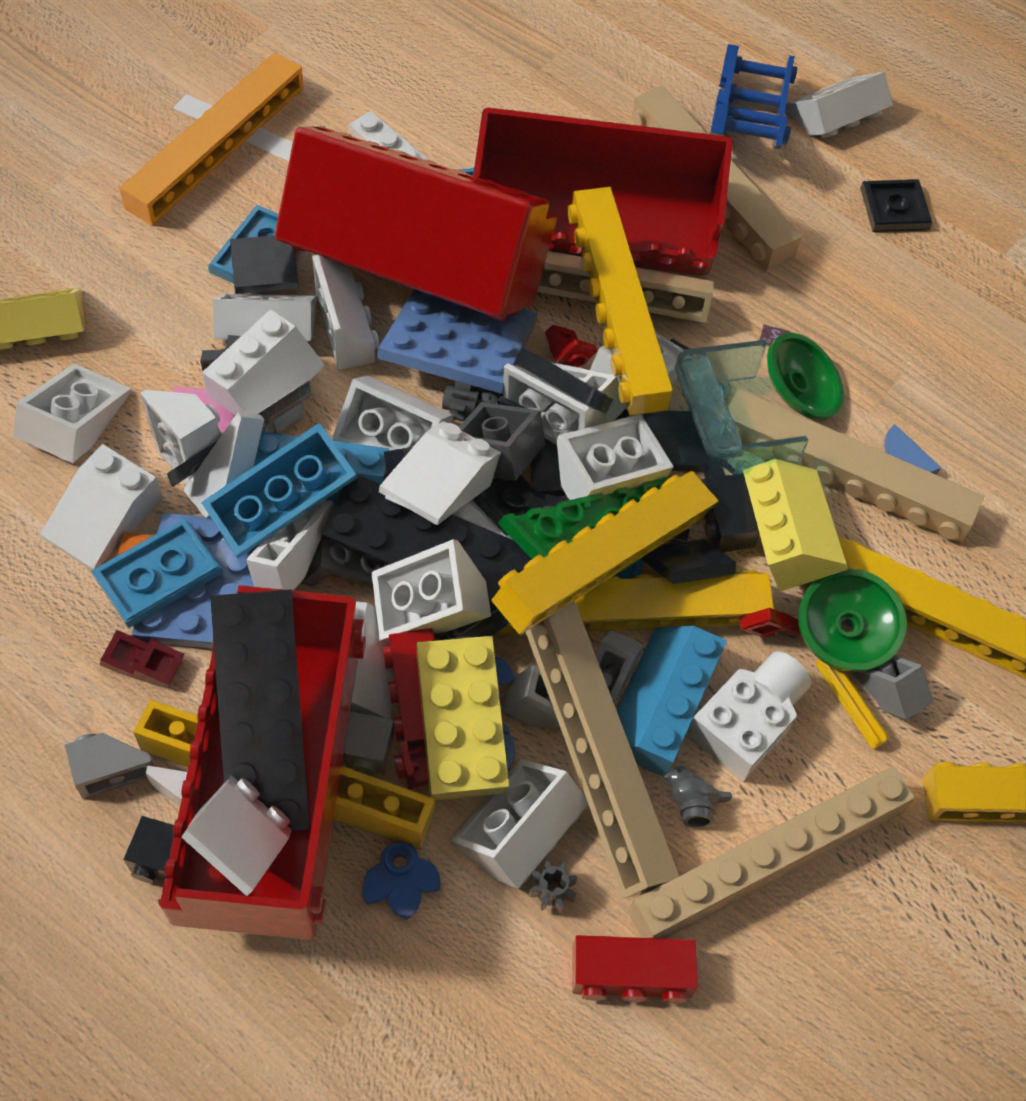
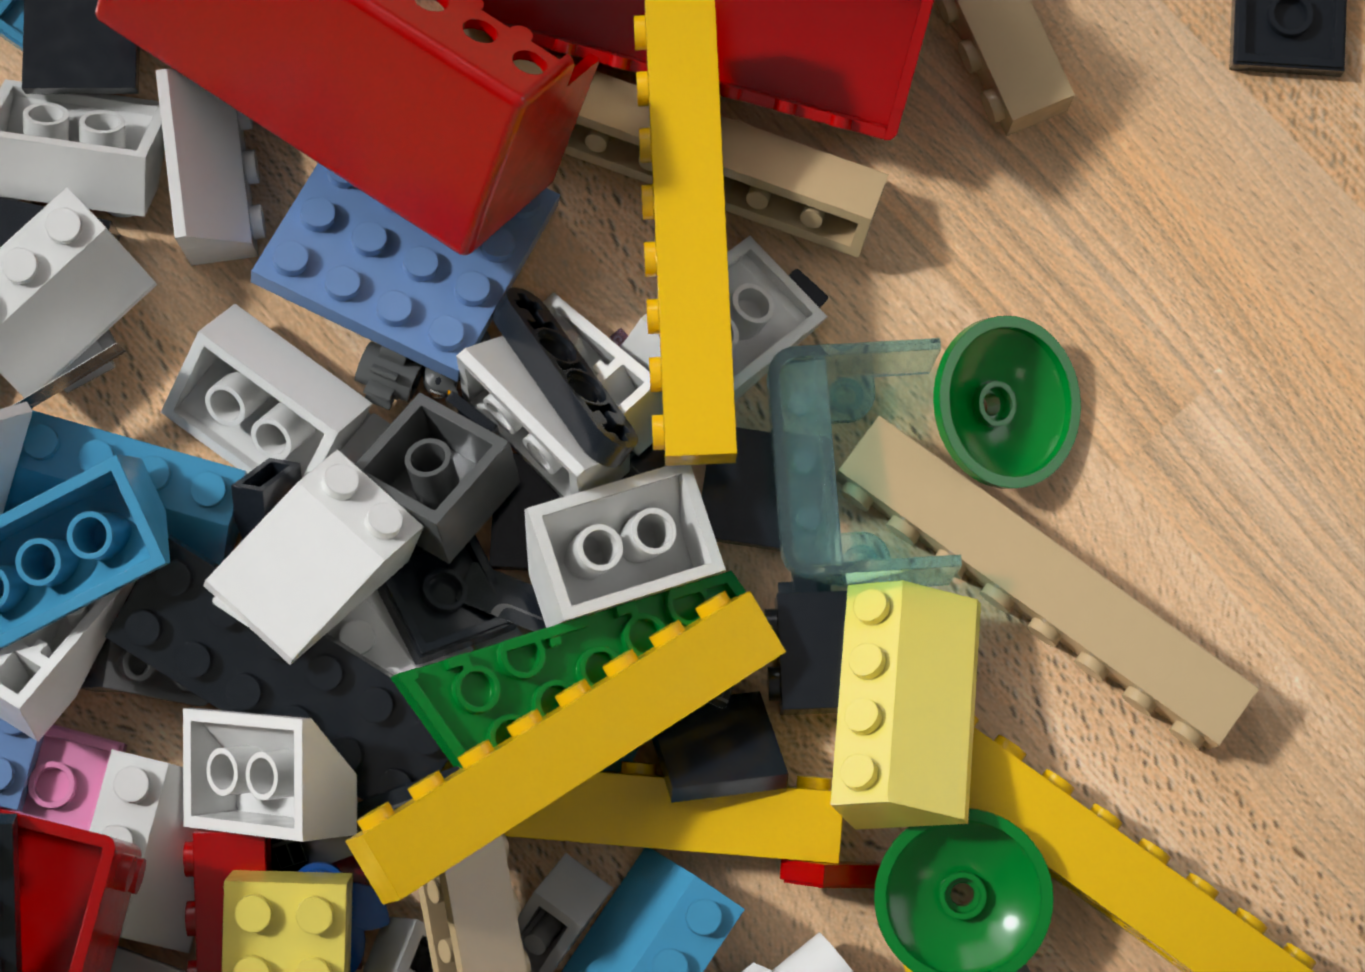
camera: 10 degrees right, 20 degrees up
(567, 347) = (598, 280): red bracket -> none
(771, 333) = (985, 287): sticker -> none
(901, 446) = (1156, 569): medium blue tile -> none

